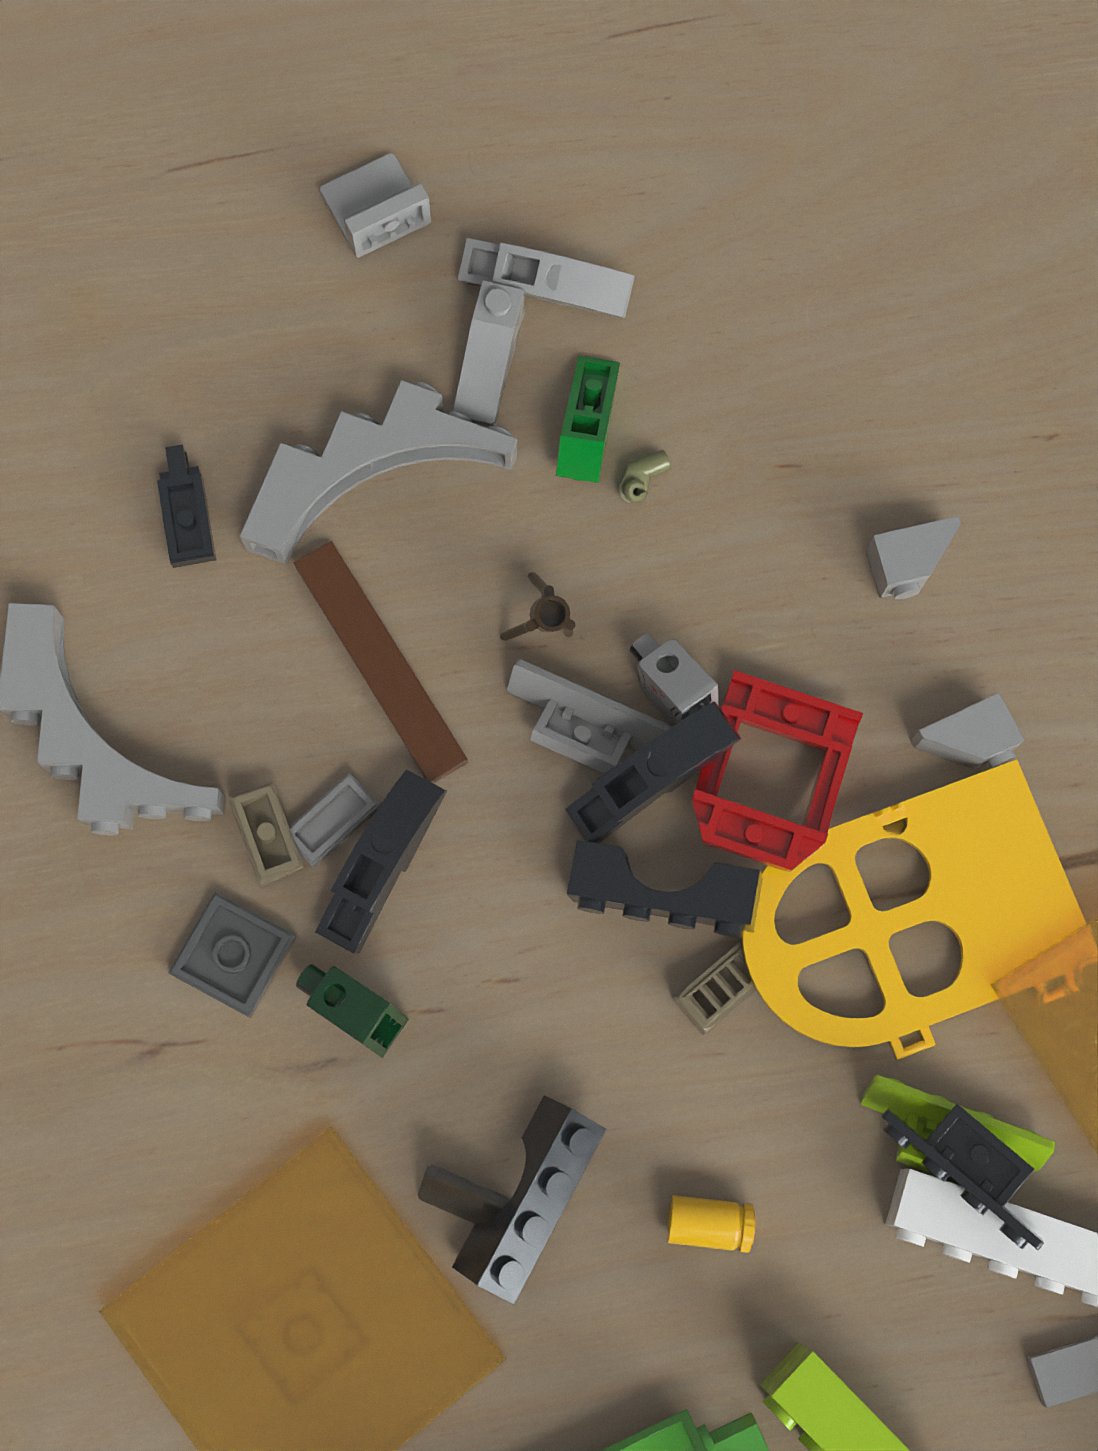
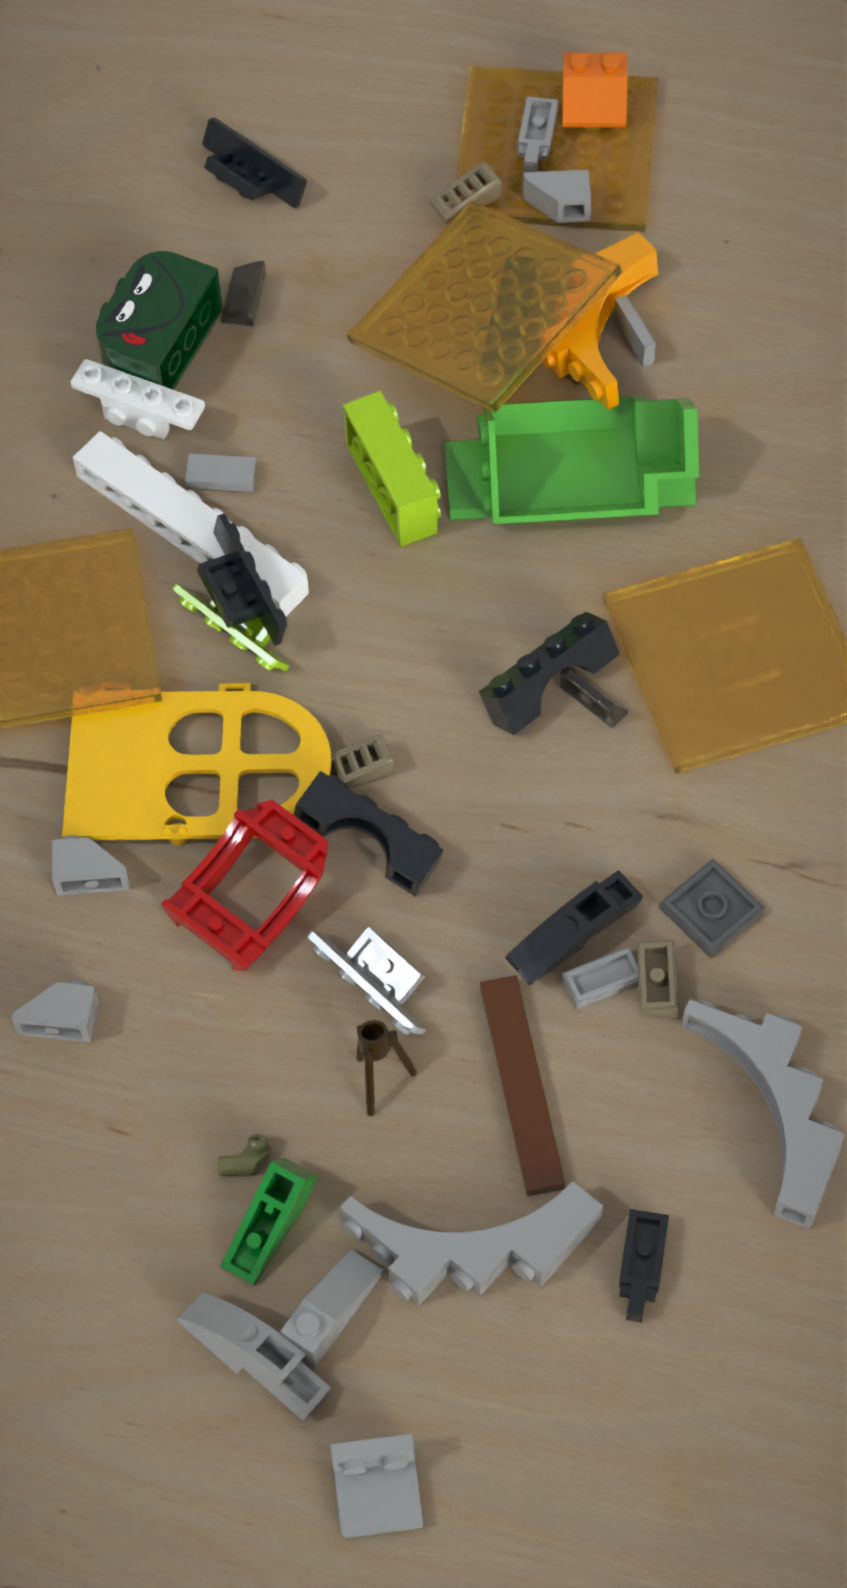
camera: 155 degrees left, 15 degrees down
(352, 1007) = (632, 828): dark green torso -> none
(652, 772) = (342, 904): black slope -> none
(672, 678) = (294, 962): light grey torso -> none
(710, 1223) = (430, 623): yellow piece -> none

